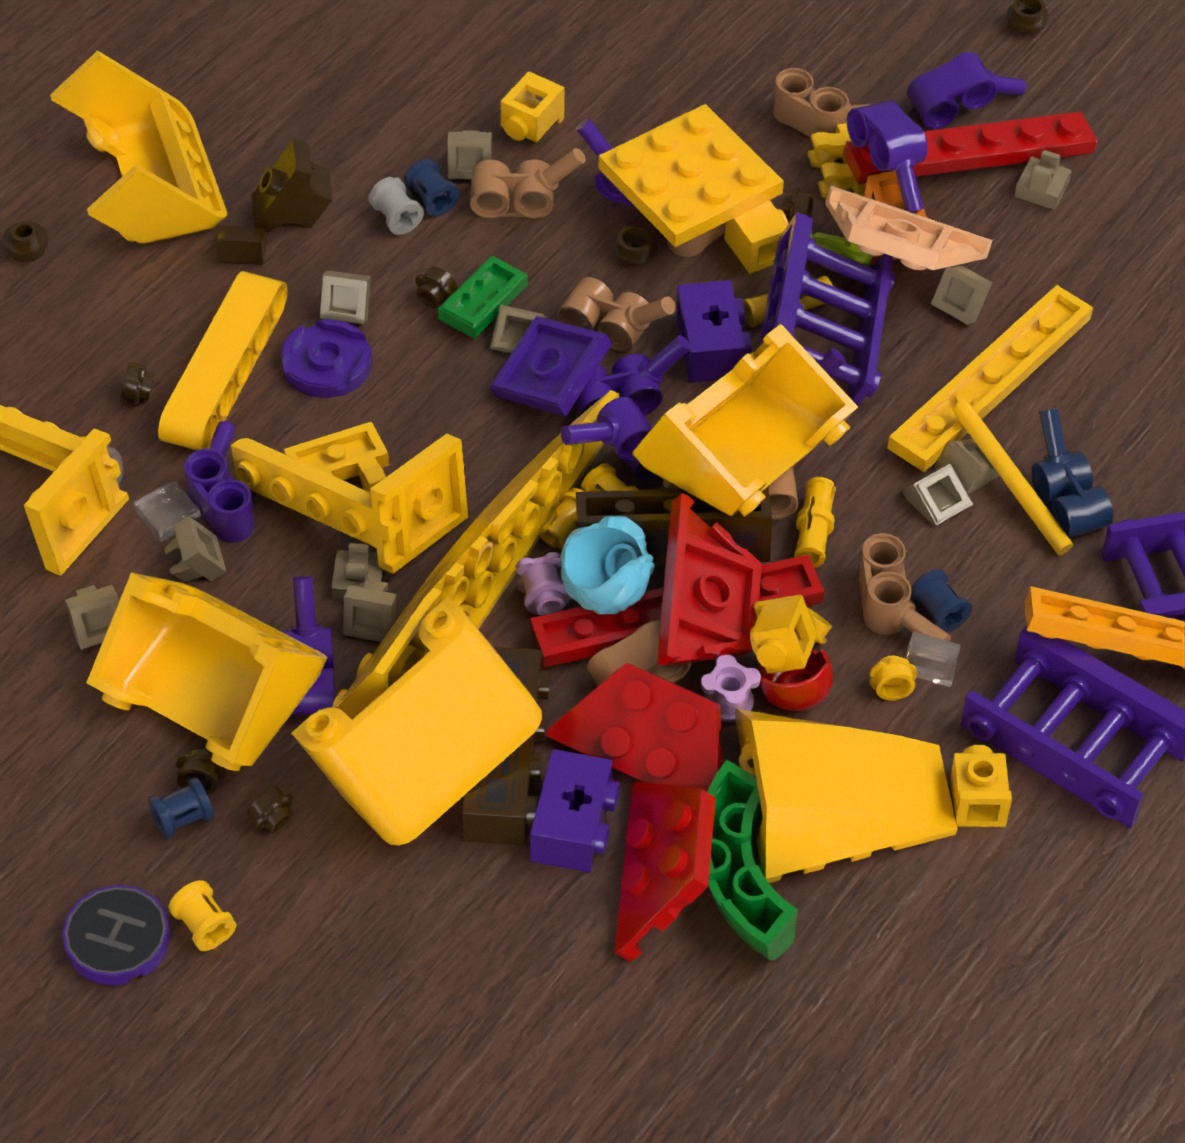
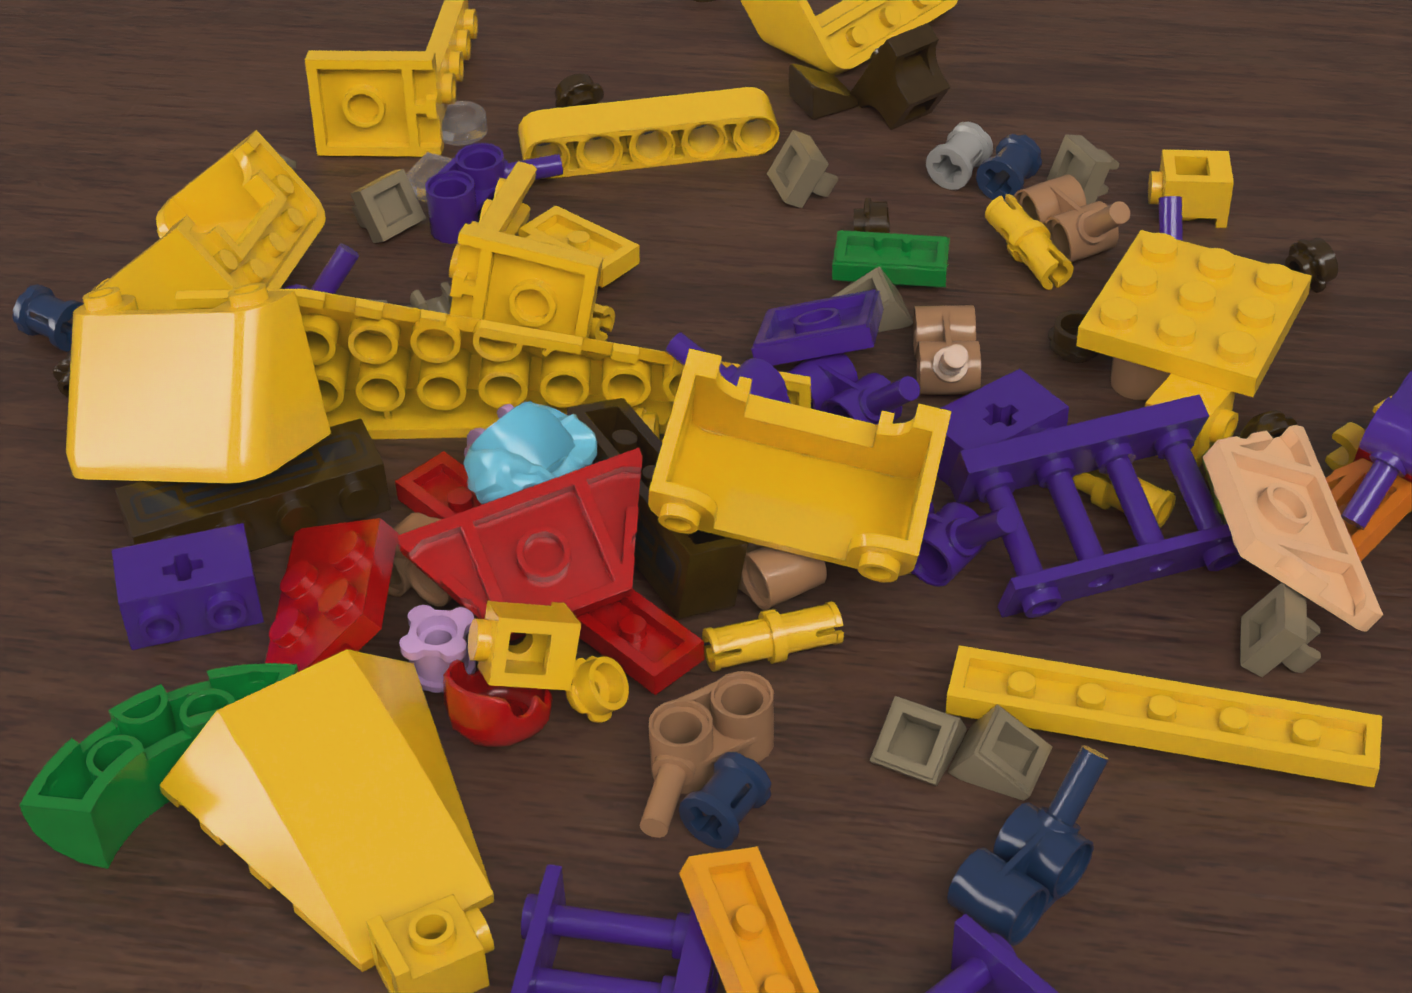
camera: 65 degrees right, 10 degrees down
(326, 358) = (717, 198): dark purple tile -> none
(519, 219) = (1029, 242): none -> yellow pin
(648, 99) = (1315, 259): none -> dark brown plate
(663, 859) = (110, 679): red wing -> none
(893, 678) = (568, 800): yellow plate -> none
(933, 658) = (615, 824): clear tile -> none
(1012, 477) = (994, 793): yellow bar -> none

